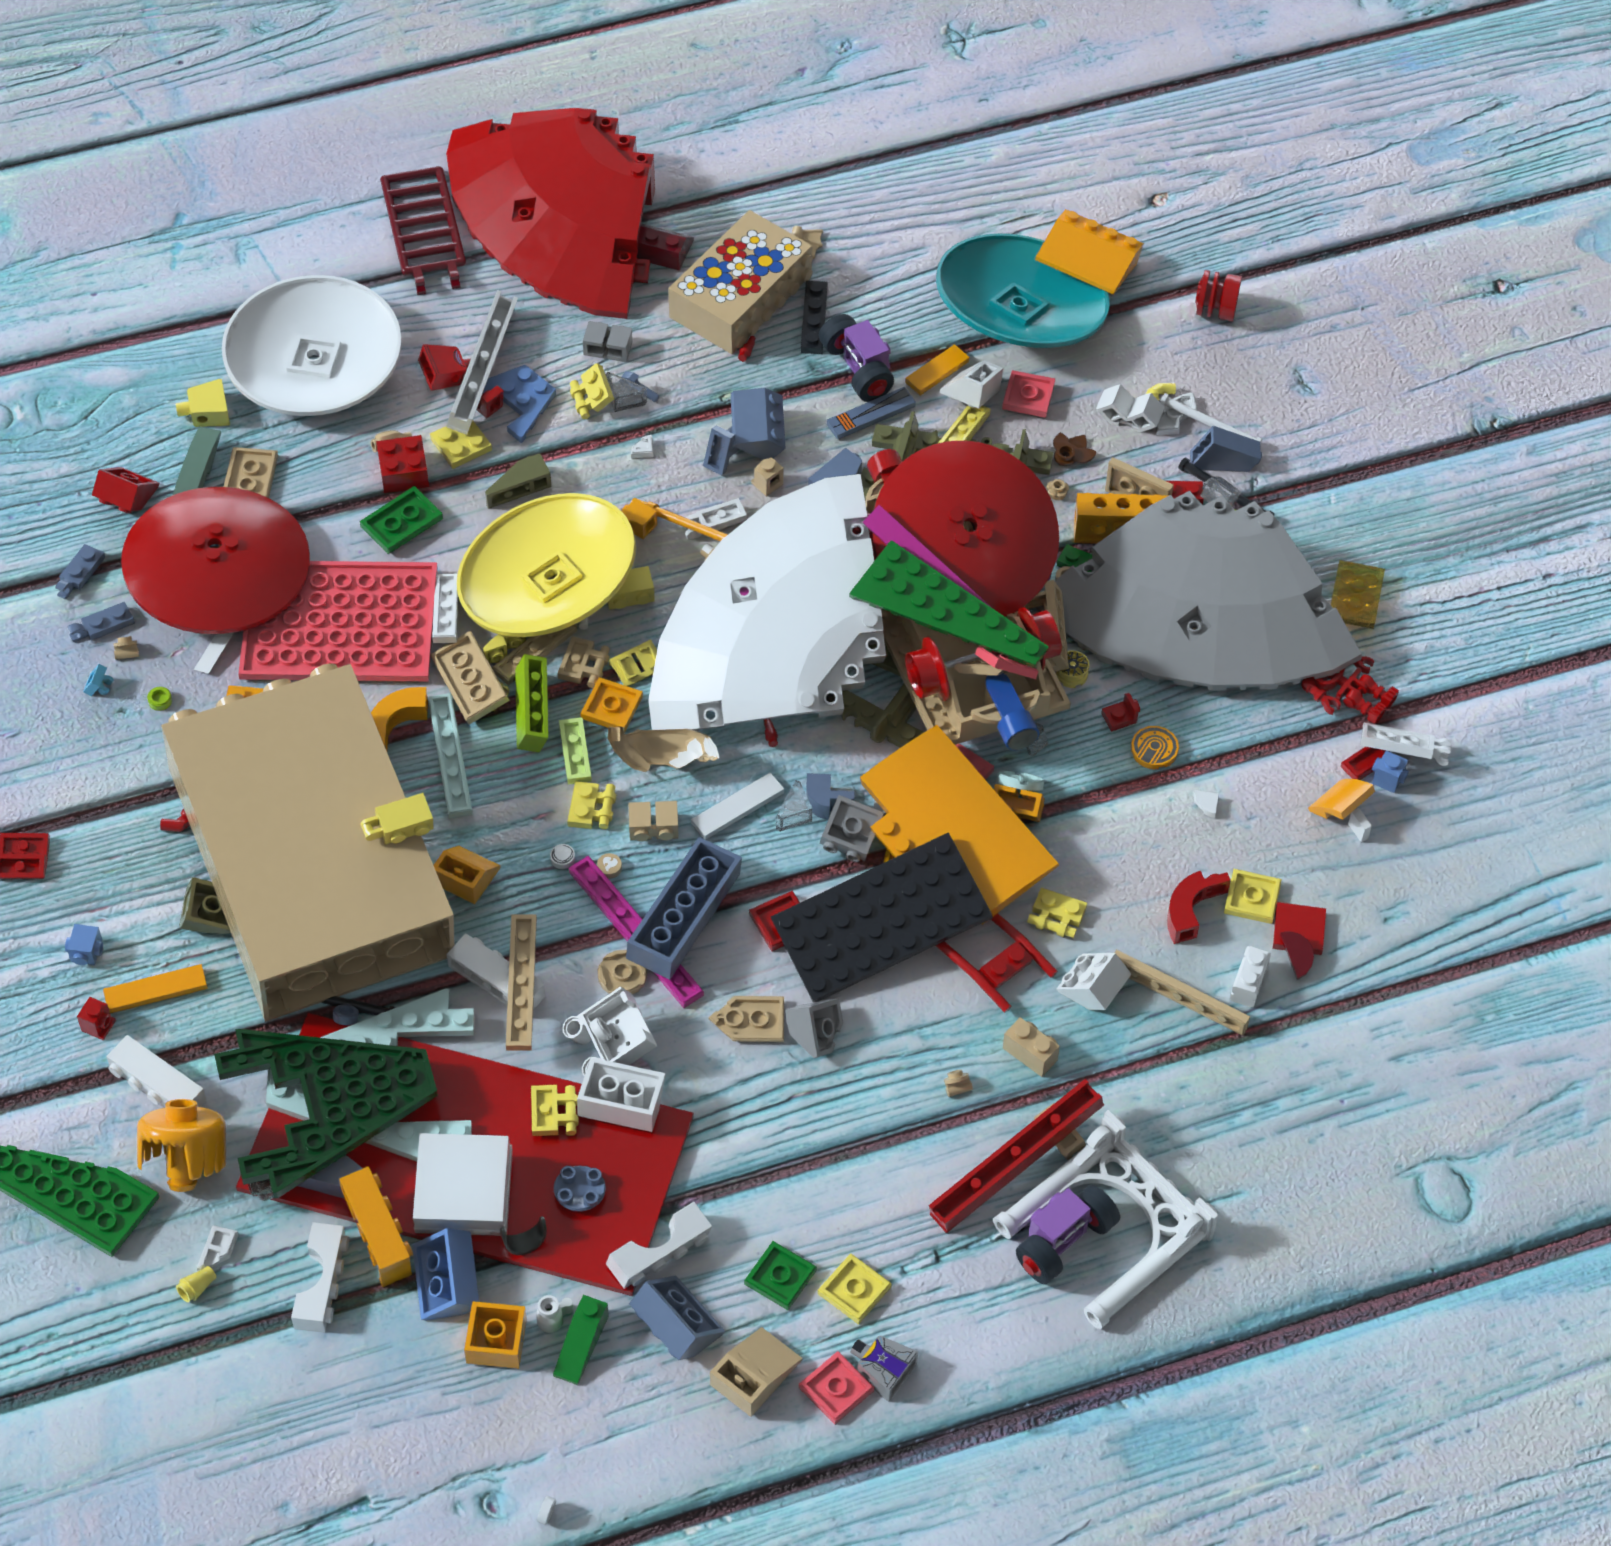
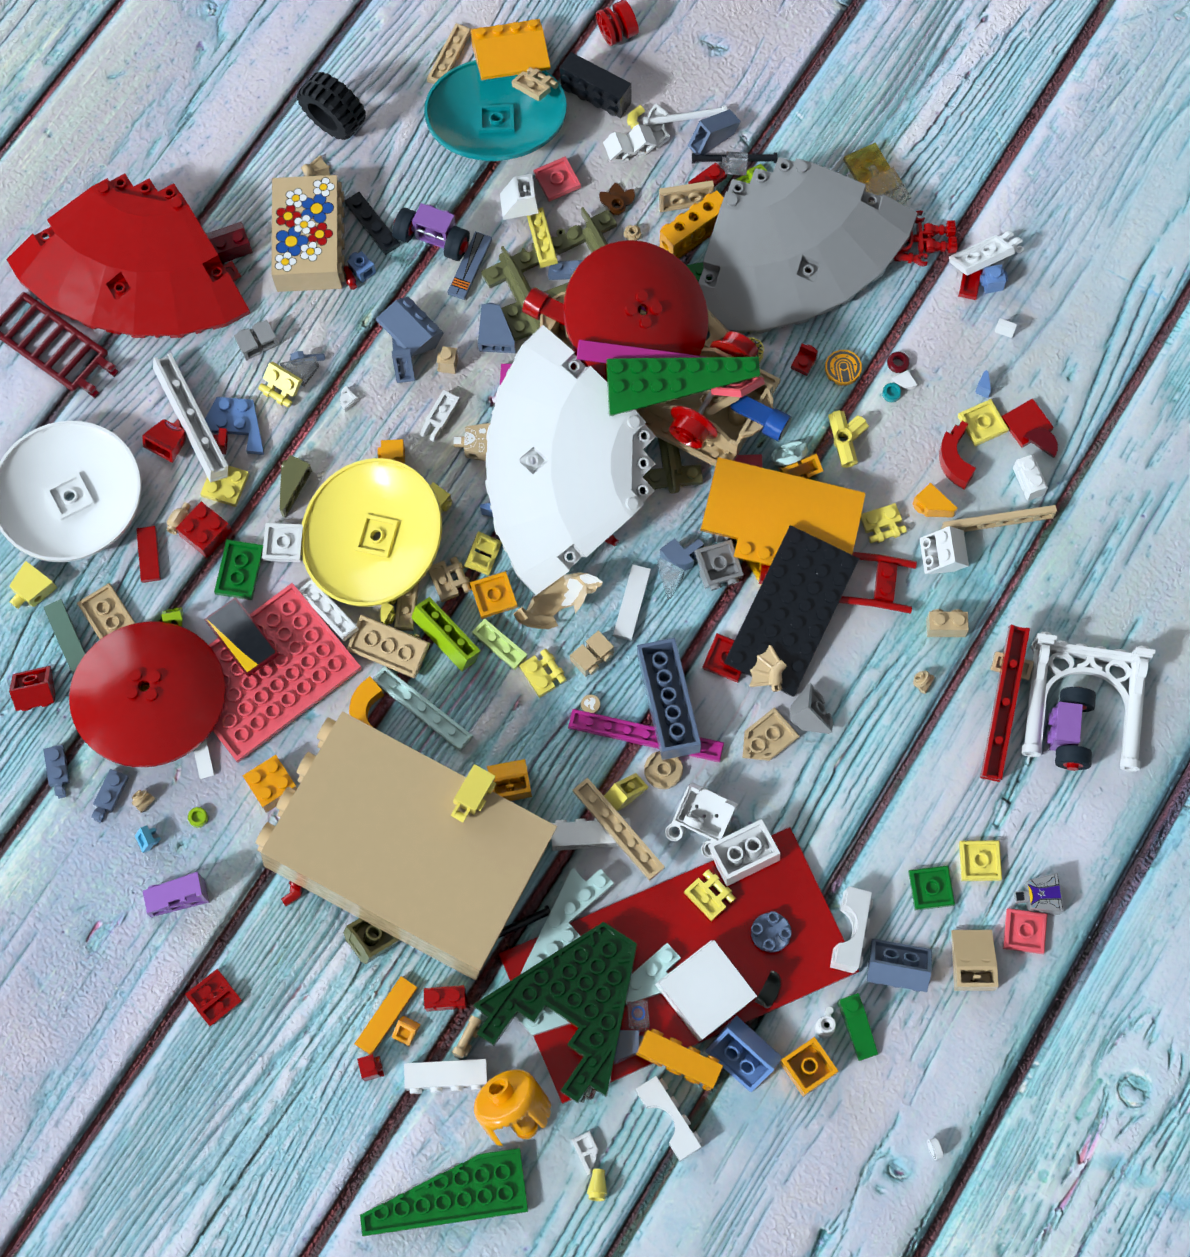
camera: 35 degrees left, 15 degrees up
(75, 745) = (176, 895): none -> medium lavender wedge
(84, 944) = (314, 1025): medium blue brick -> none
(160, 1015) = (405, 1030): none -> light orange slope
(201, 1060) = (463, 1046): none -> tan plate
(220, 1011) = (445, 998): none -> red brick
(304, 515) = (171, 614): none -> lime tile
(335, 452) = (148, 554): none -> red tile
(344, 571) = (241, 637): none -> black slope
(345, 1014) = (523, 936): sand blue tile -> none
(381, 1159) = (638, 1015): none -> clear brick
(461, 524) = (282, 542): none -> white plate
(562, 856) = (556, 721): white tile -> none
(564, 962) = (625, 791): none -> light yellow slope
(687, 523) = (433, 431): light orange bar -> none
(766, 340) = (361, 266): none -> medium blue brick
(805, 953) = (768, 670): none -> tan arm
(865, 186) = (331, 105): none -> black tyre
(937, 369) = (484, 203): light orange tile -> none
(1032, 222) = (450, 52): none -> tan tile
(1081, 293) = (534, 83): none -> tan plate
(1102, 808) = (849, 431): none -> light yellow piece
(1125, 929) = (933, 503): none -> light orange slope
(1143, 335) = (595, 85): none -> black brick
(1183, 804) = (891, 392): none -> teal tile
(1220, 774) = (898, 355): none -> dark red piece
(1284, 860) = (983, 387): none -> medium blue slope
(1342, 798) = (983, 318): light orange slope -> none
(1357, 612) = (887, 184): none -> clear plate

